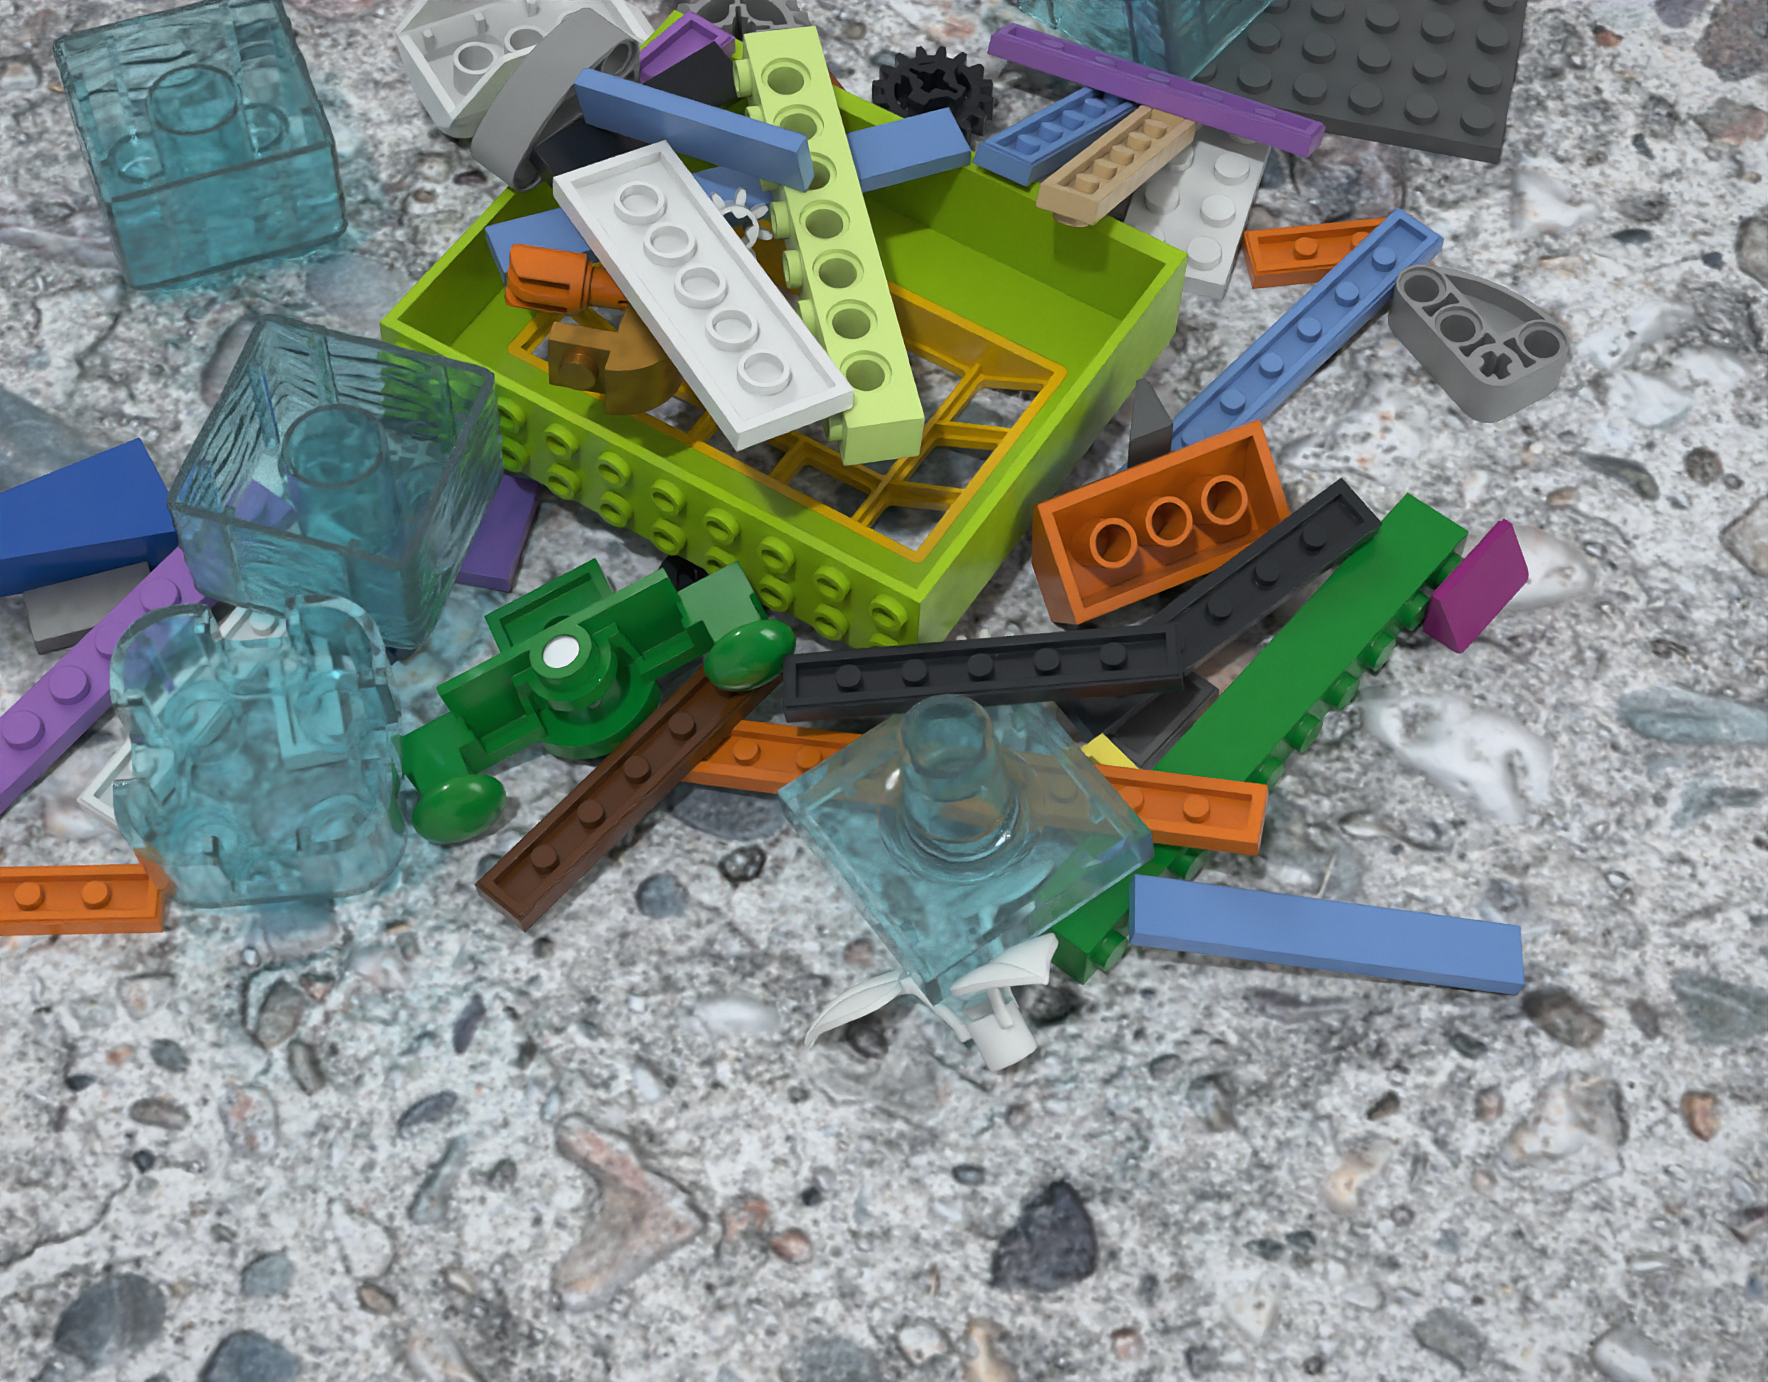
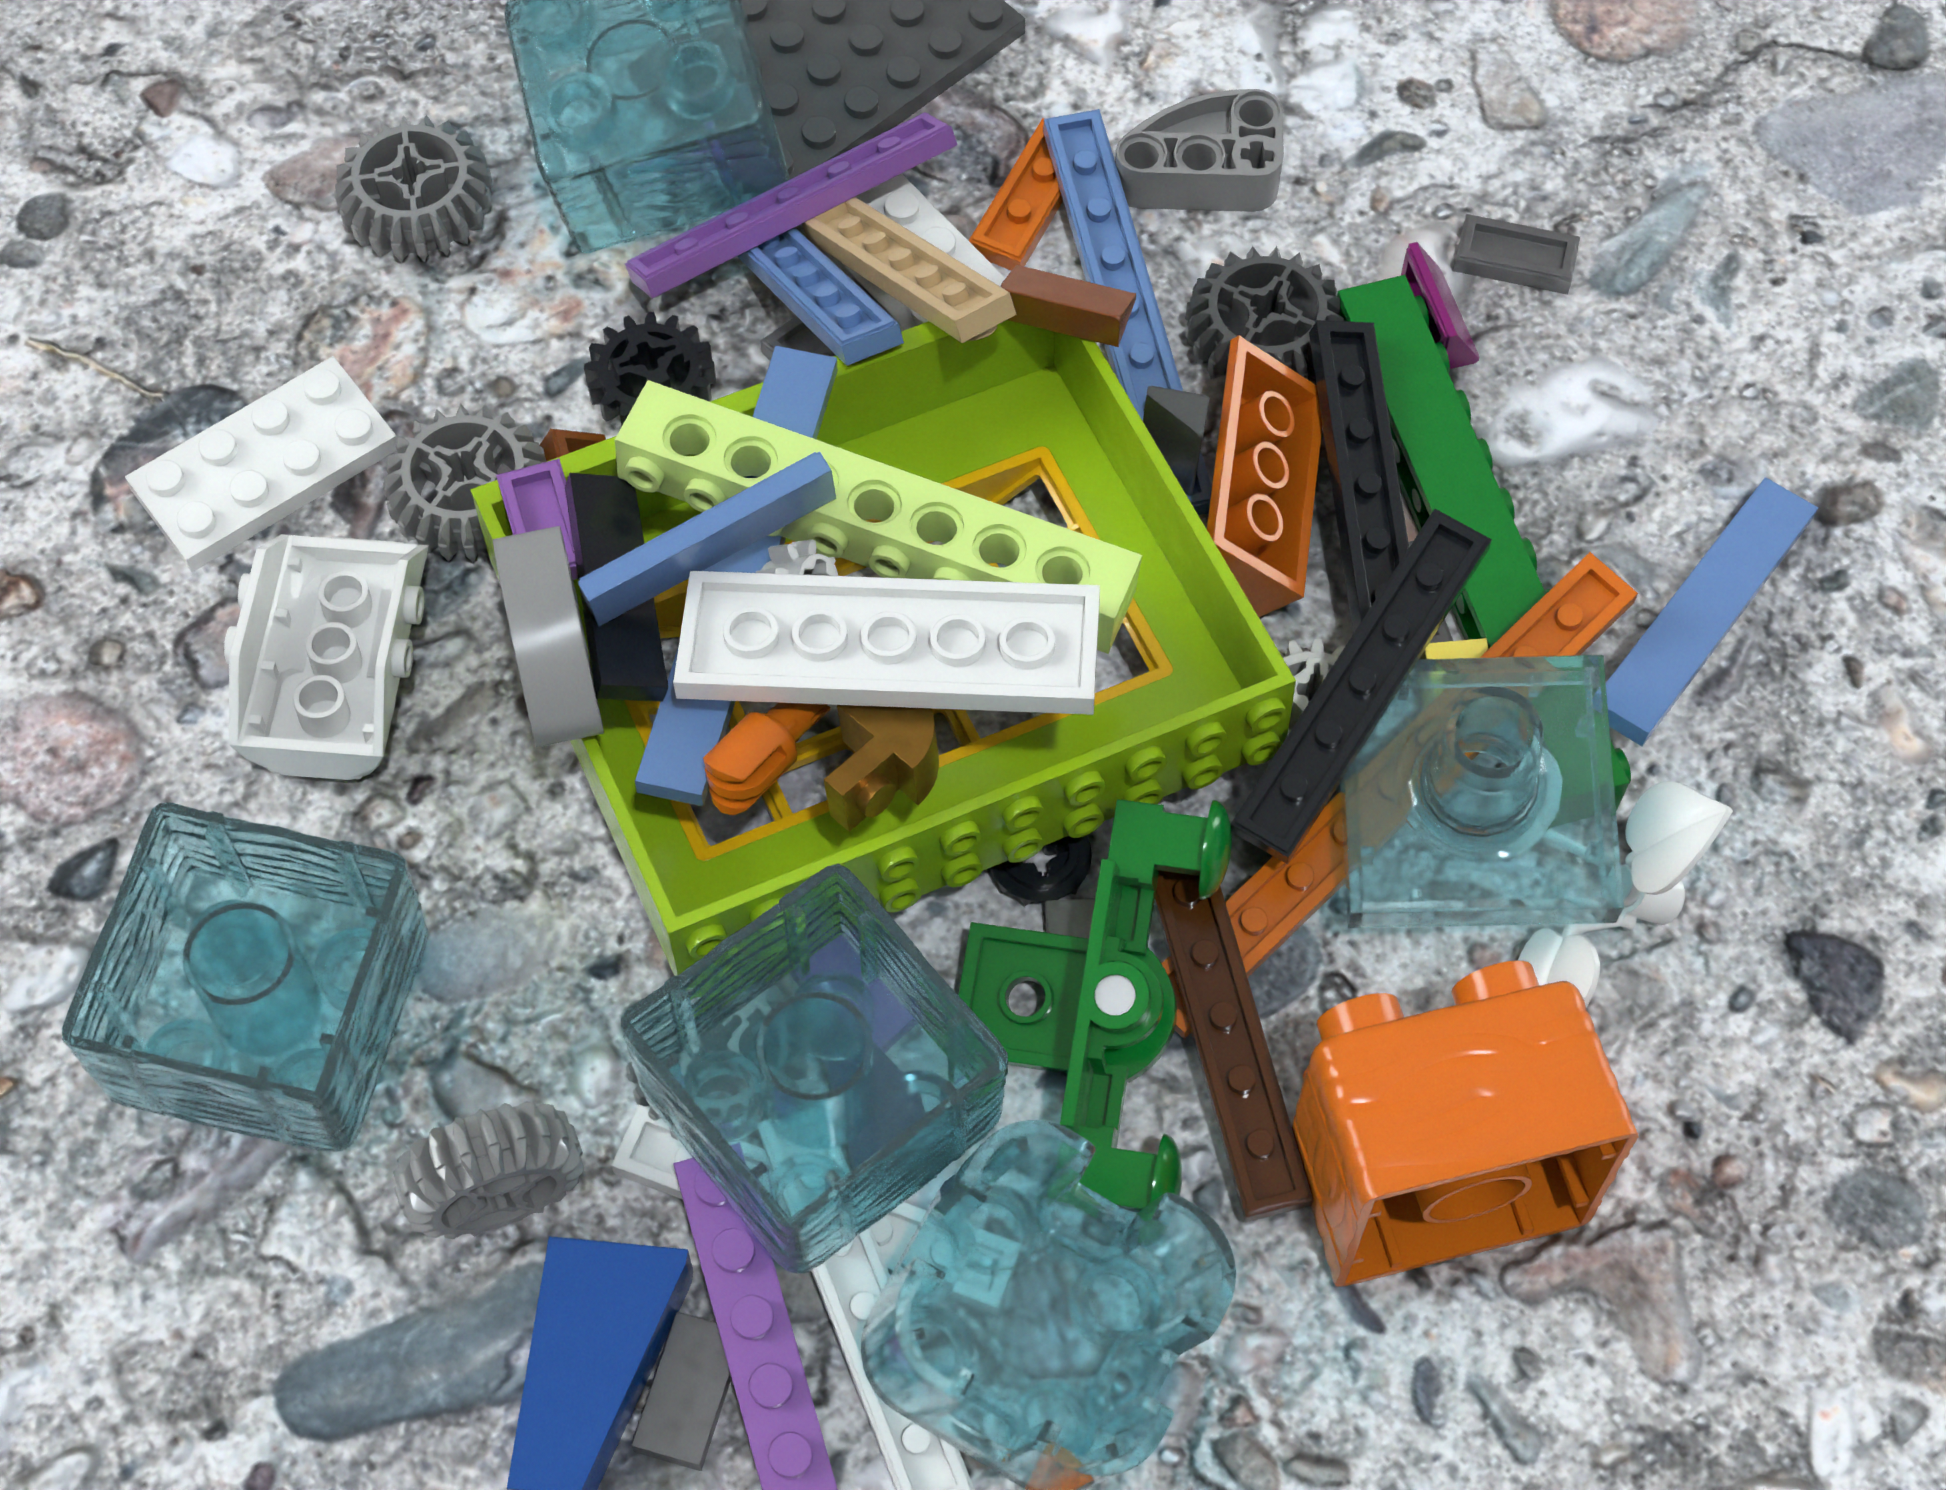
camera: 55 degrees left, 5 degrees up
(159, 366) = (488, 1170): none -> light grey gear
(619, 951) = (1457, 1123): none -> orange brick
(1156, 267) = (1069, 305): none -> dark orange slope
(1348, 442) = (1263, 301): none -> dark grey gear
(1595, 622) = (1517, 254): none -> flat silver tile

